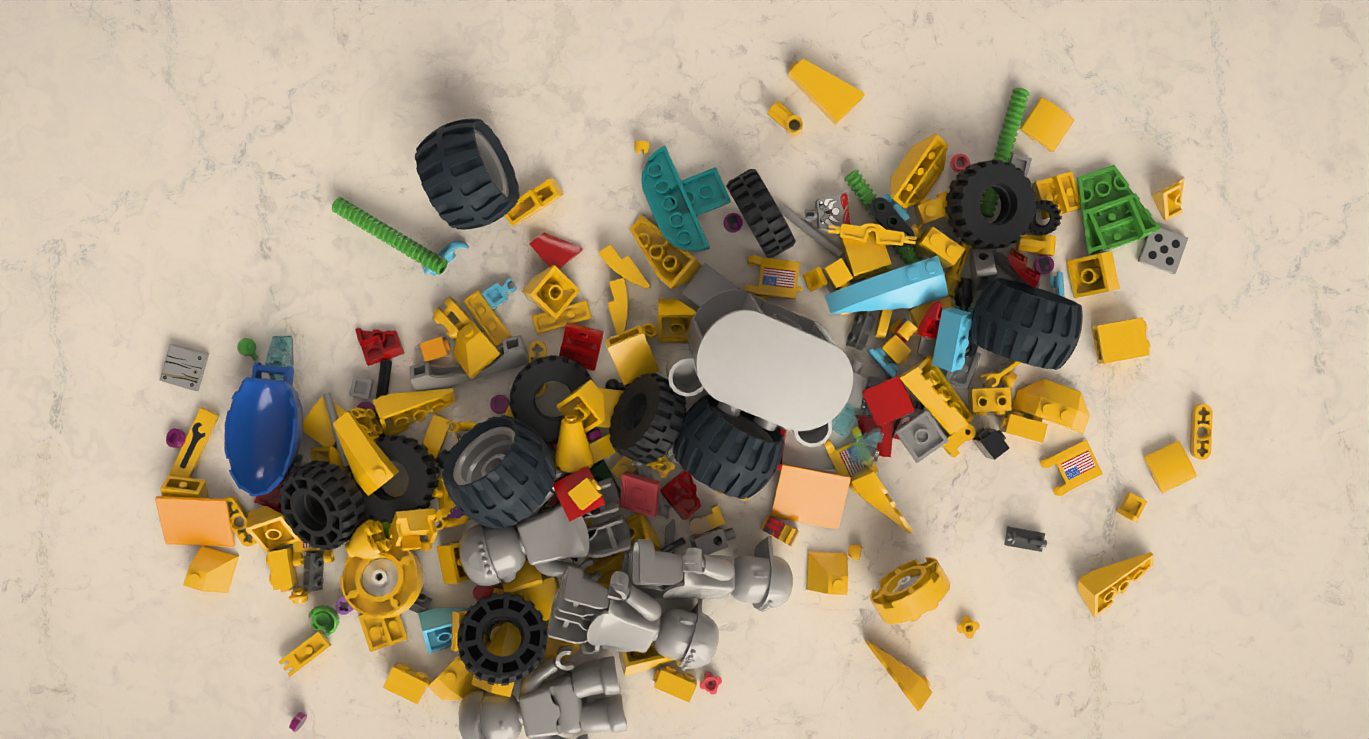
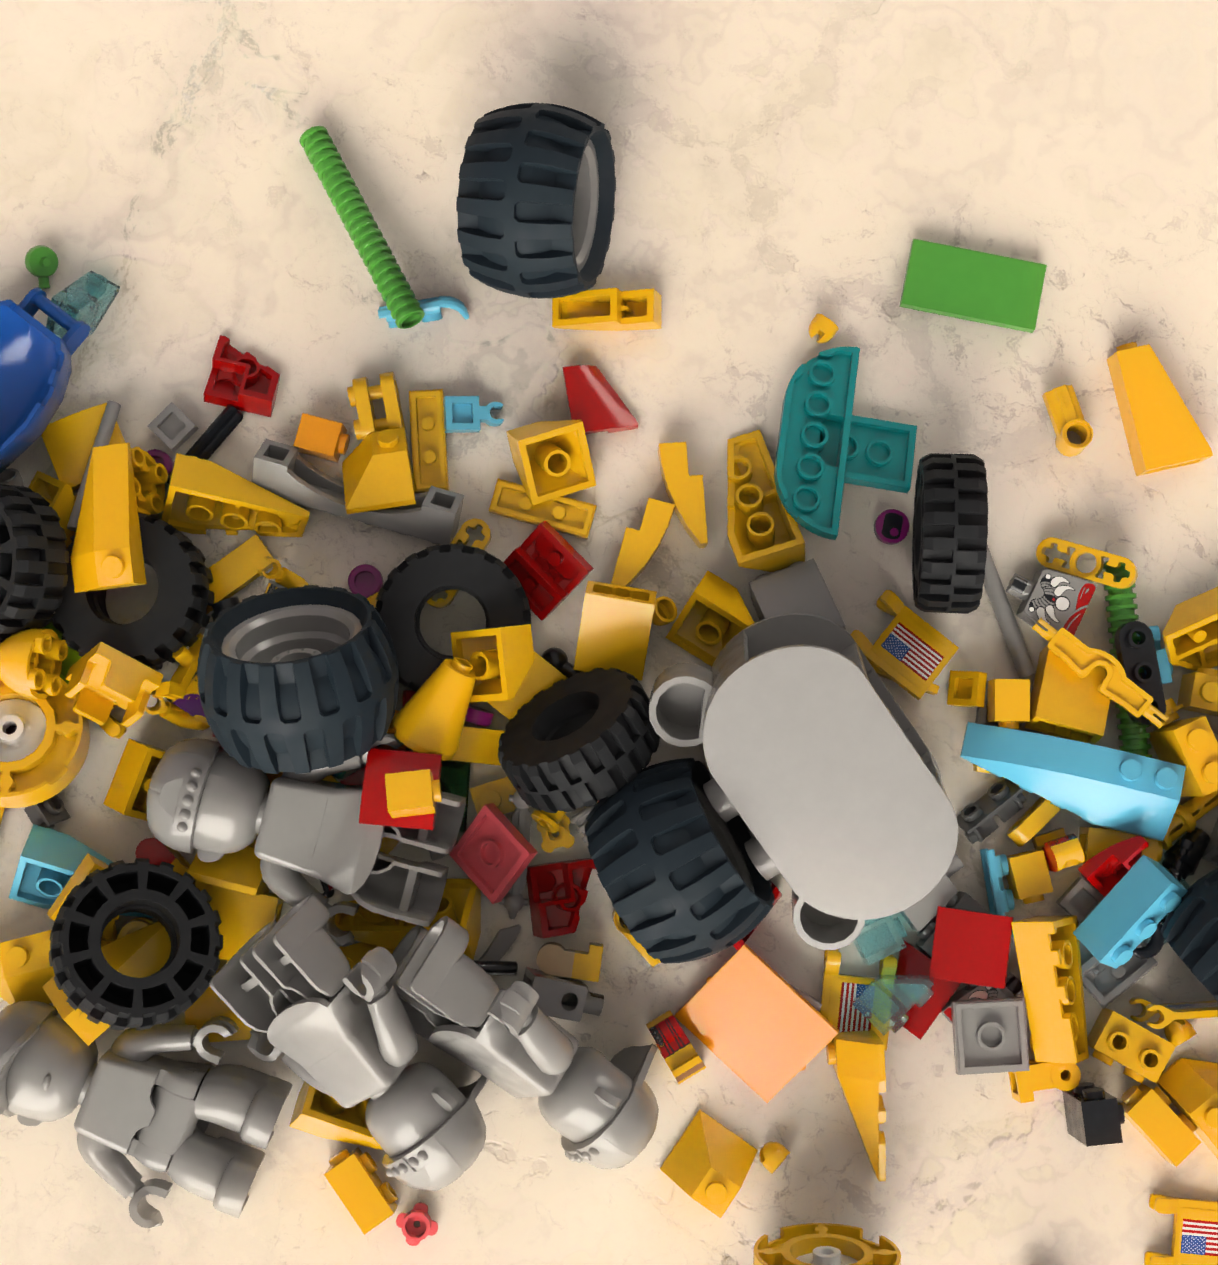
camera: 25 degrees right, 5 degrees down
(701, 80) = (973, 285): none -> bright green tile
(848, 175) = (1108, 578): none -> yellow beam

